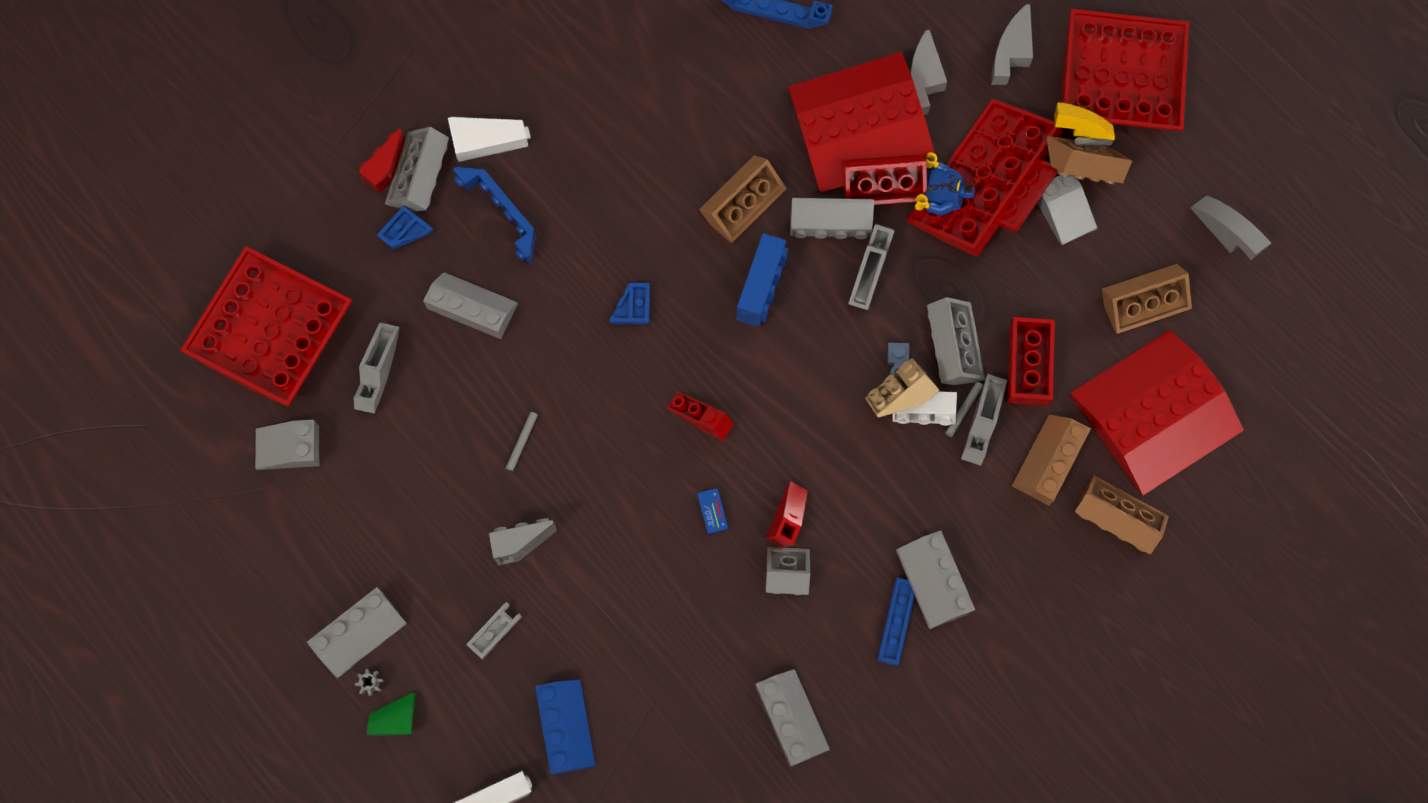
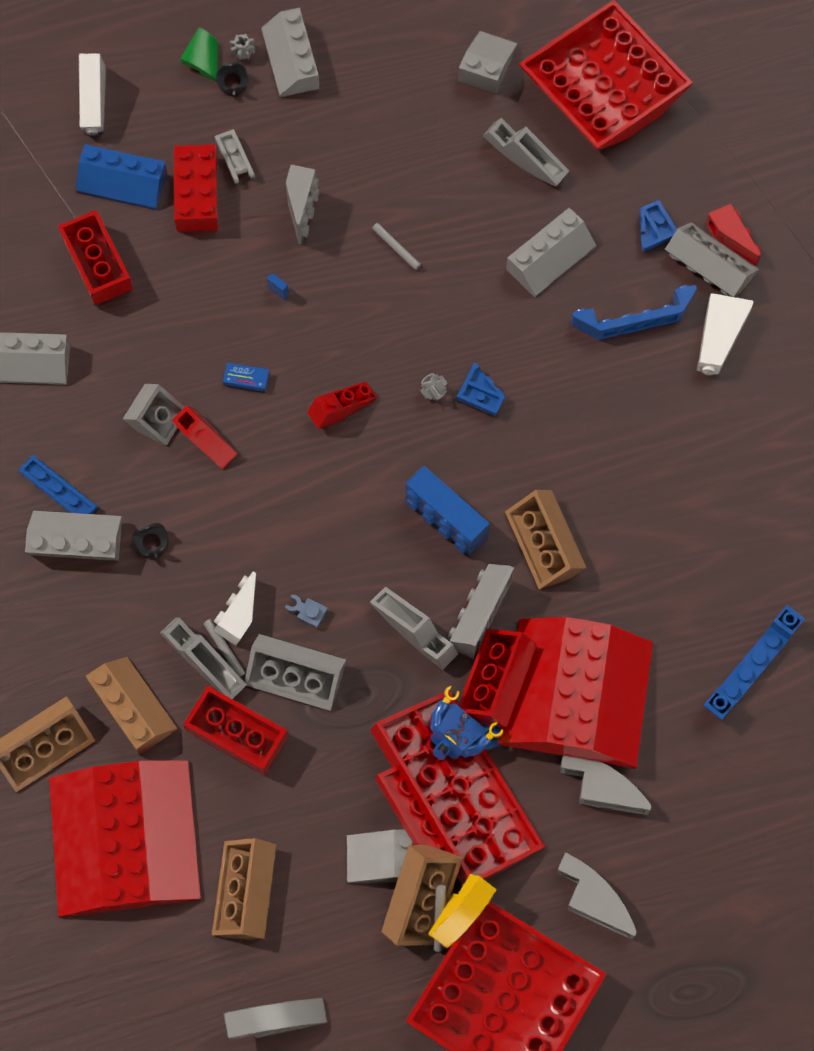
camera: 115 degrees right, 5 degrees down
(404, 687) = (226, 69): none -> black piece
(544, 648) = (196, 188): none -> red brick
(612, 523) = (277, 286): none -> blue tile
(648, 344) = (433, 386): none -> light grey gear
(662, 702) = (95, 257): none -> red brick
(898, 523) = (157, 529): none -> black piece
(902, 390) = (268, 590): tan slope -> none

